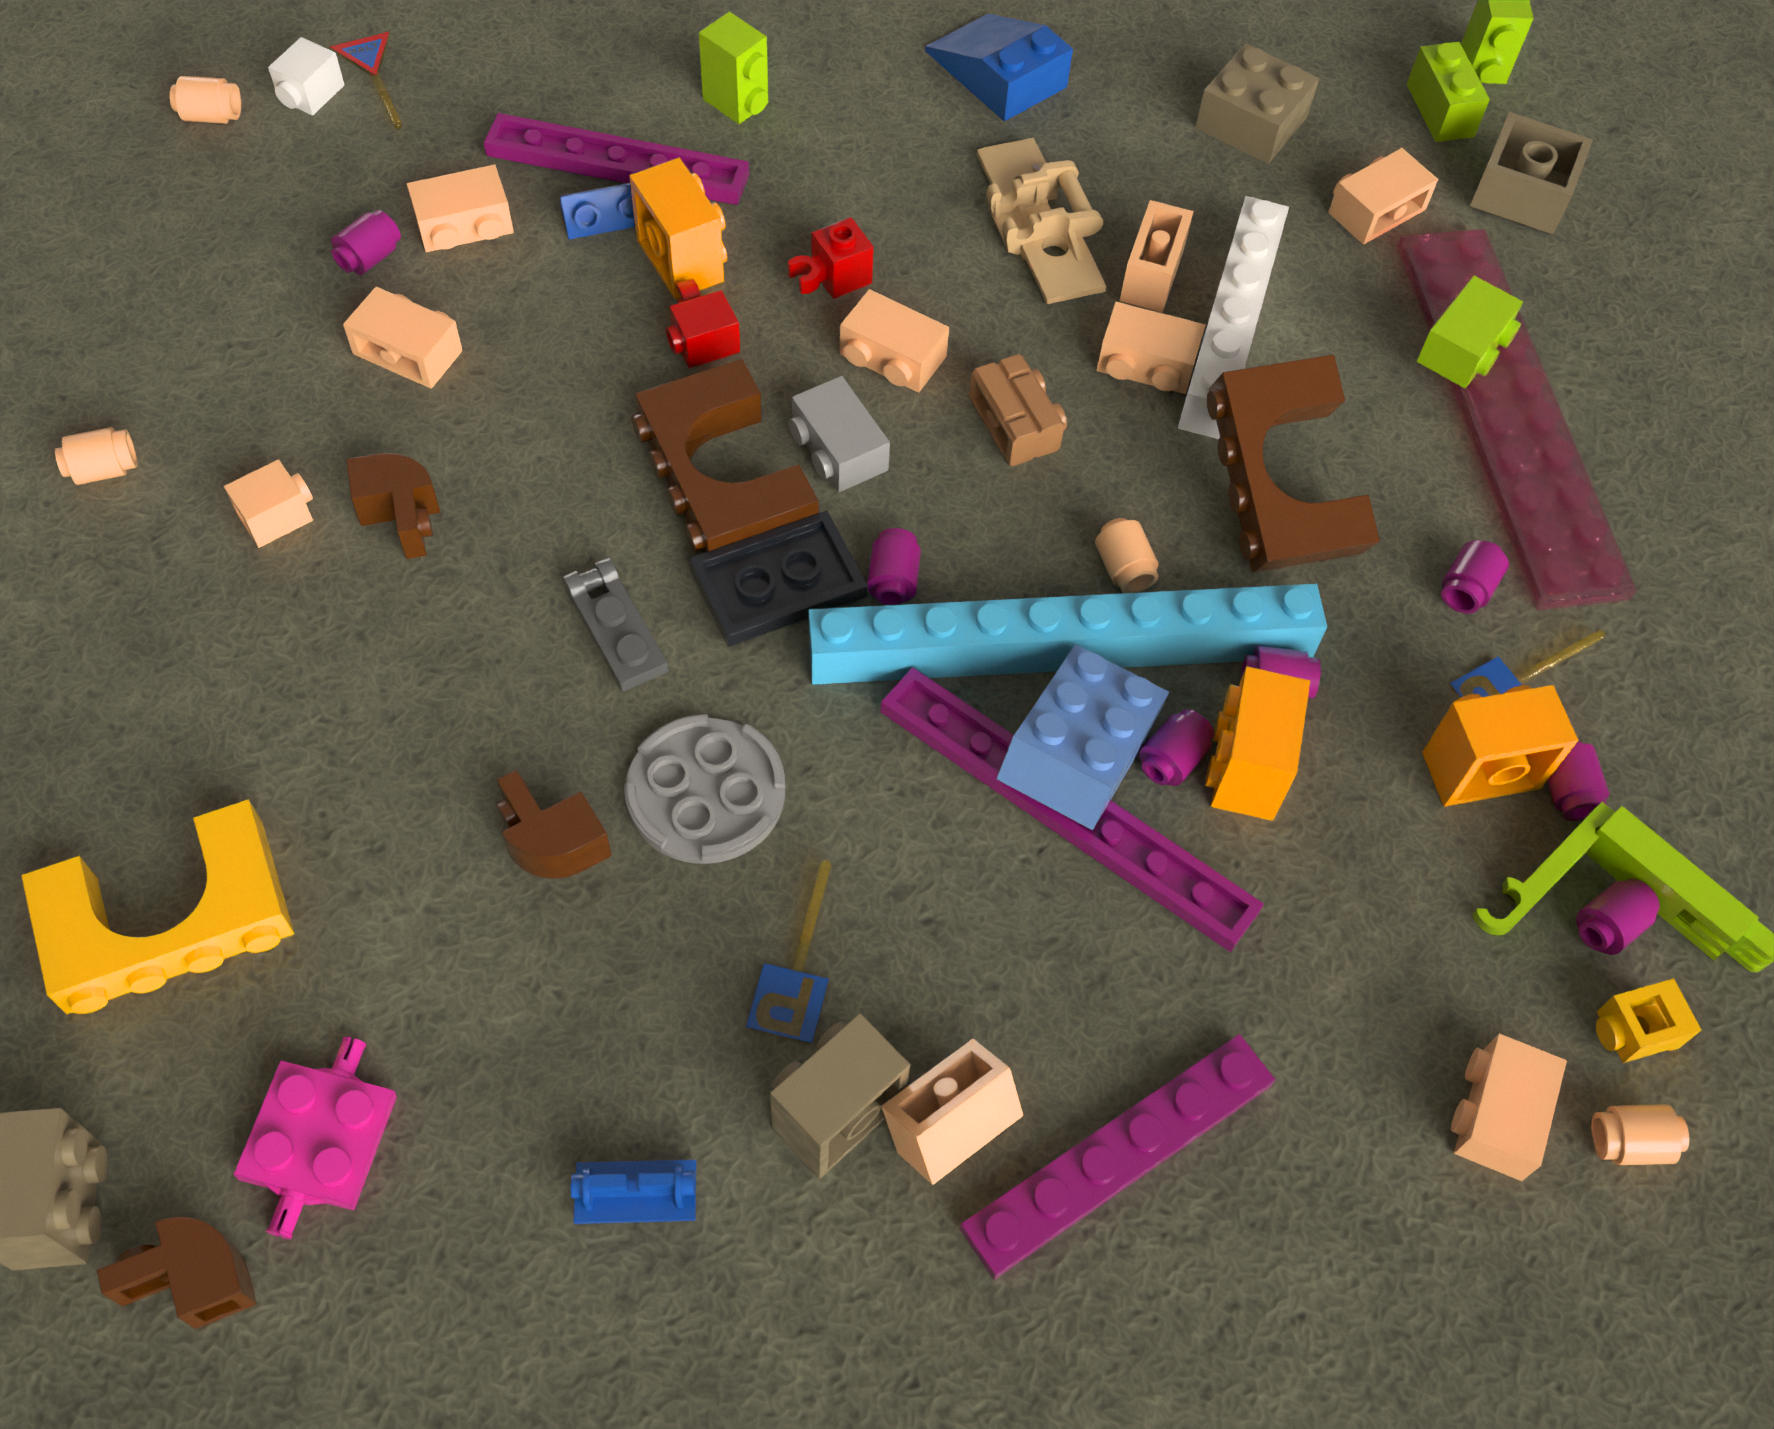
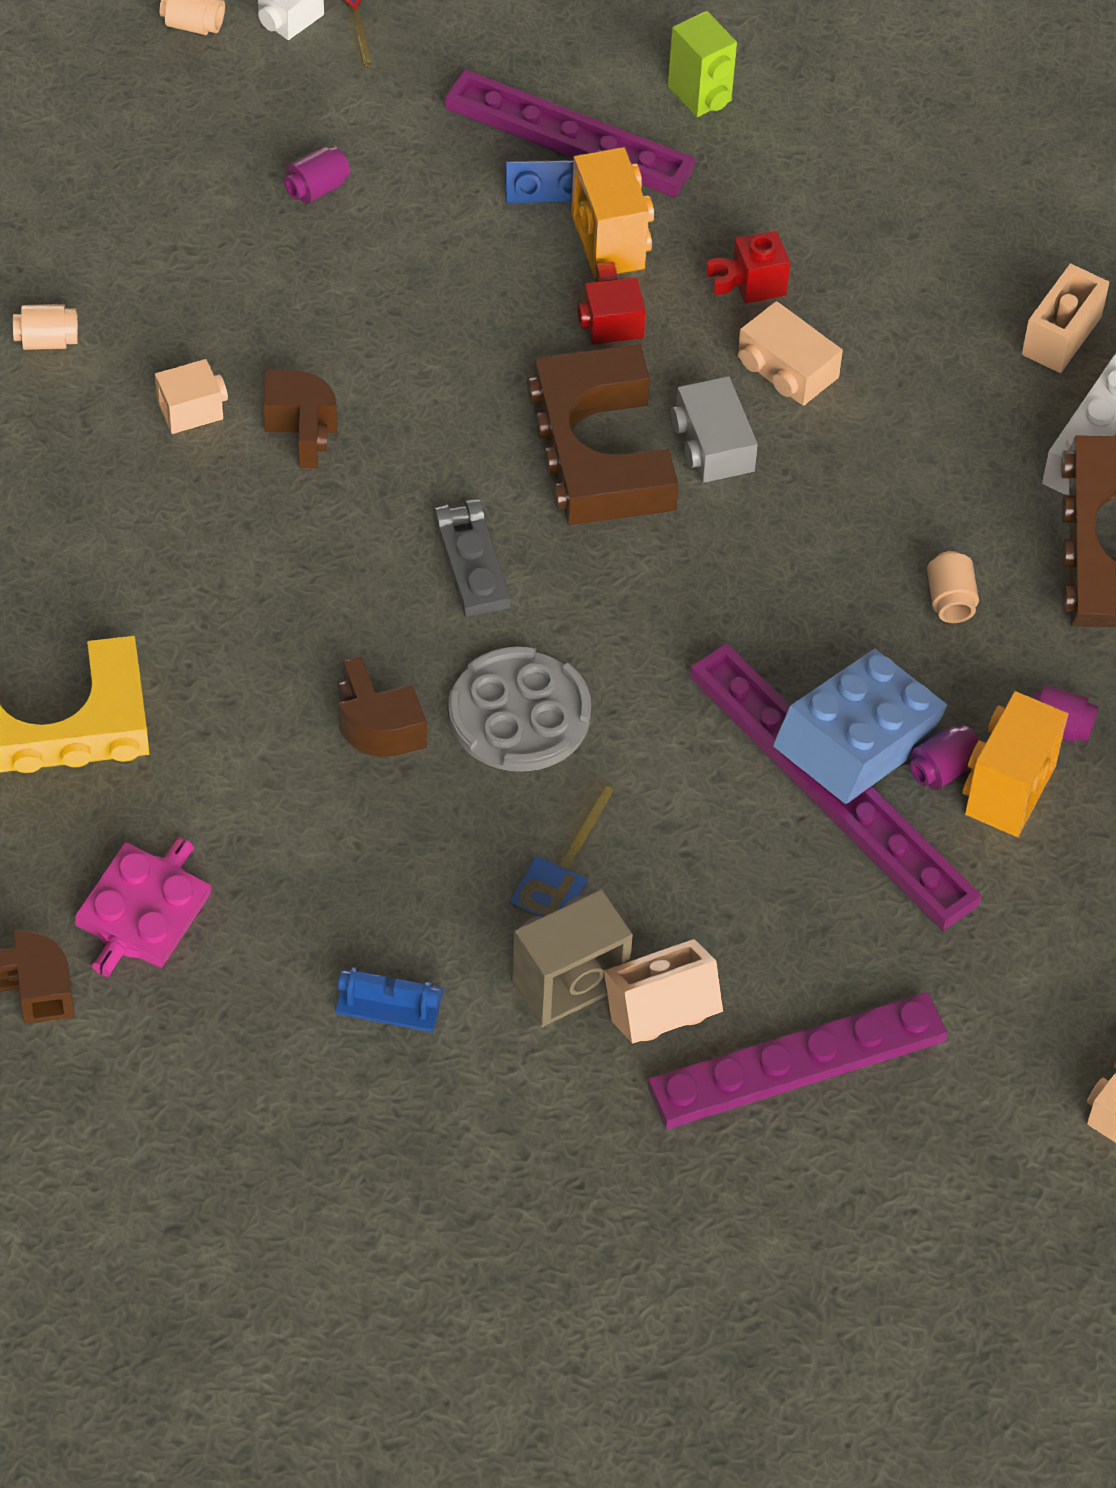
camera: 15 degrees right, 5 degrees down
(403, 337) = (335, 269): light nougat brick -> none
(460, 208) = (411, 156): light nougat brick -> none
(777, 577) = (627, 545): black plate -> none
(894, 566) = (734, 555): magenta brick -> none
(1005, 62) = (977, 99): blue slope -> none
(1017, 409) = (889, 437): medium nougat brick -> none
(1027, 224) = (953, 263): tan piece -> none
(1041, 632) = (837, 633): medium azure brick -> none
(1150, 348) = (1031, 401): light nougat brick -> none

